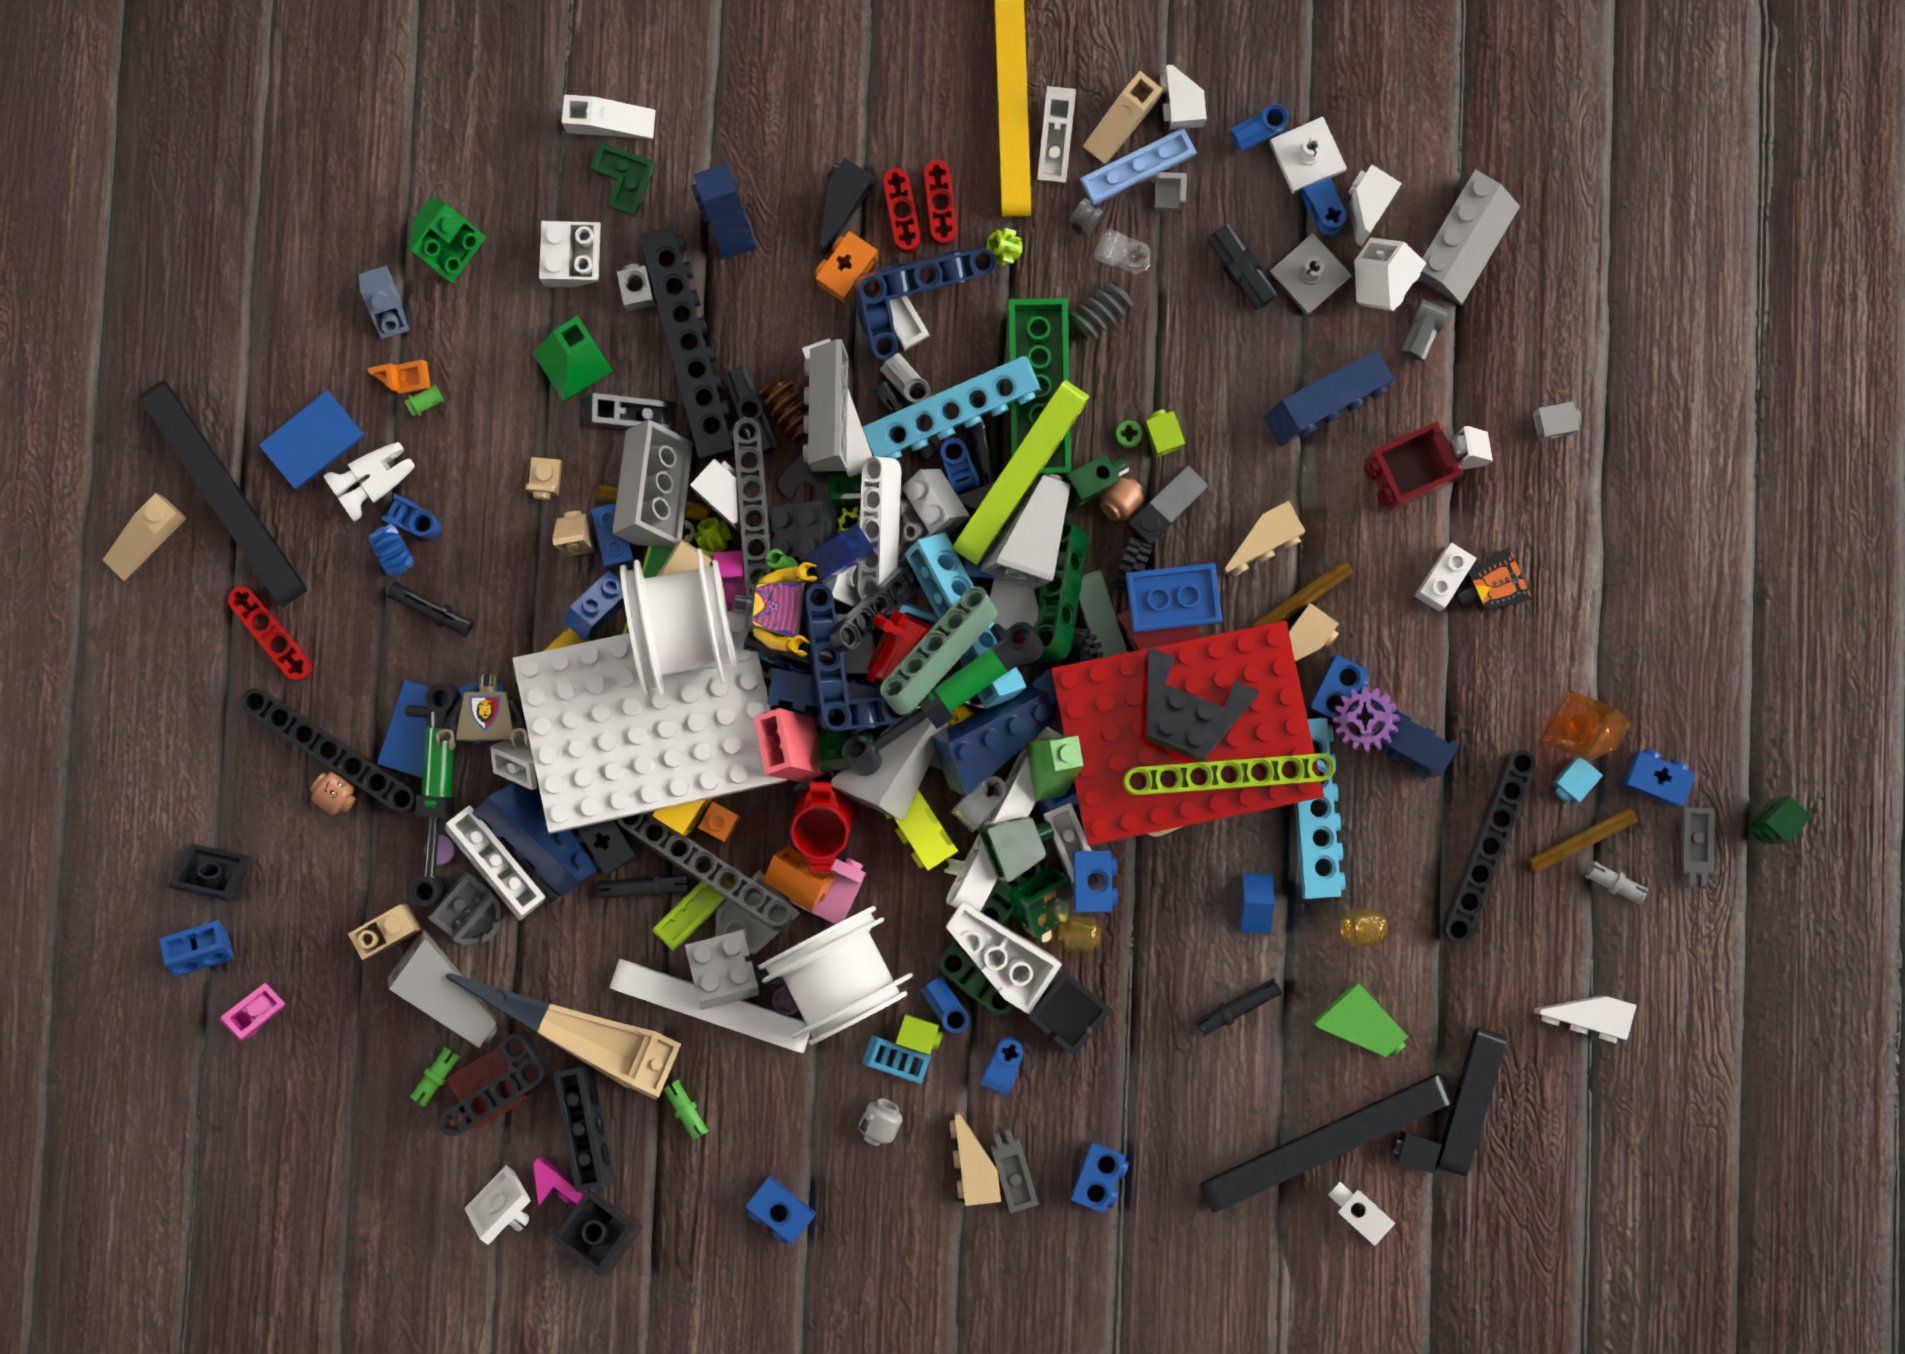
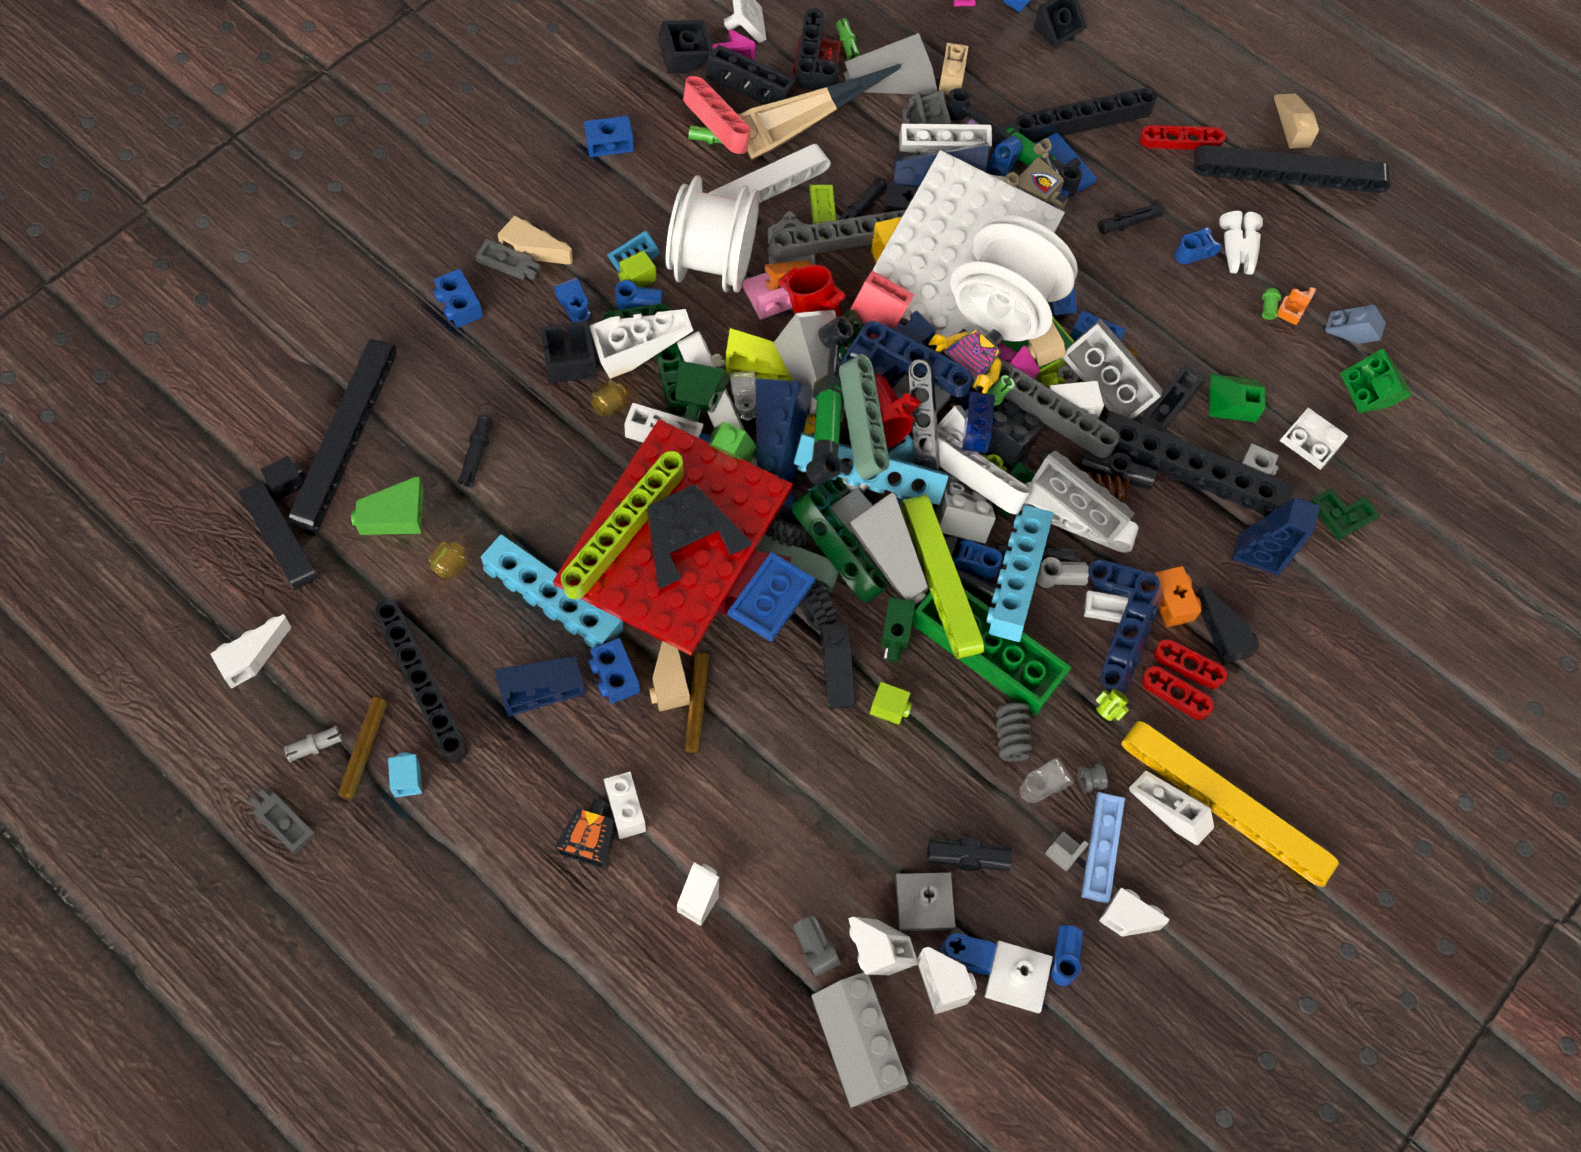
camera: 120 degrees right, 20 degrees down
(312, 440) = (1290, 234): blue tile -> none
(333, 792) = (1057, 96): nougat head -> none
(391, 550) = (1185, 218): blue gear -> none
(465, 784) = (1002, 160): none -> blue piece
(544, 478) = (1165, 330): tan bracket -> none
(574, 534) = (1118, 304): tan slope -> none
(606, 118) = (1395, 530): white slope -> none
(656, 1127) = (716, 114): none -> coral beam
(719, 822) = (862, 262): orange brick -> none
(722, 969) = (779, 190): light grey piece -> none
(880, 1122) = (606, 216): light grey head -> none
(1041, 903) = (649, 383): dark green torso -> none
(1085, 898) = (628, 398): blue brick -> none
(1122, 500) = (867, 640): nougat head -> none
(1123, 117) = (1150, 862): tan slope -> none
(1135, 428) = (907, 676): bright green bush -> none
(1257, 903) = (529, 514): blue slope -> none
(1273, 529) = (761, 716): tan slope -> none
(1329, 397) = (822, 833): dark blue wedge -> none
(1372, 1224) = (279, 413): white torso -> none
(1378, 720) = (577, 658): medium lavender gear -> none
(1412, 466) = (720, 851): dark red container -> none
(1557, 421) = (664, 985): light grey brick -> none
(1586, 727) = (431, 811): clear orange slope -> none
(1641, 778) = (335, 832): blue brick -> none
(1779, 821) = (237, 884): dark green brick -> none

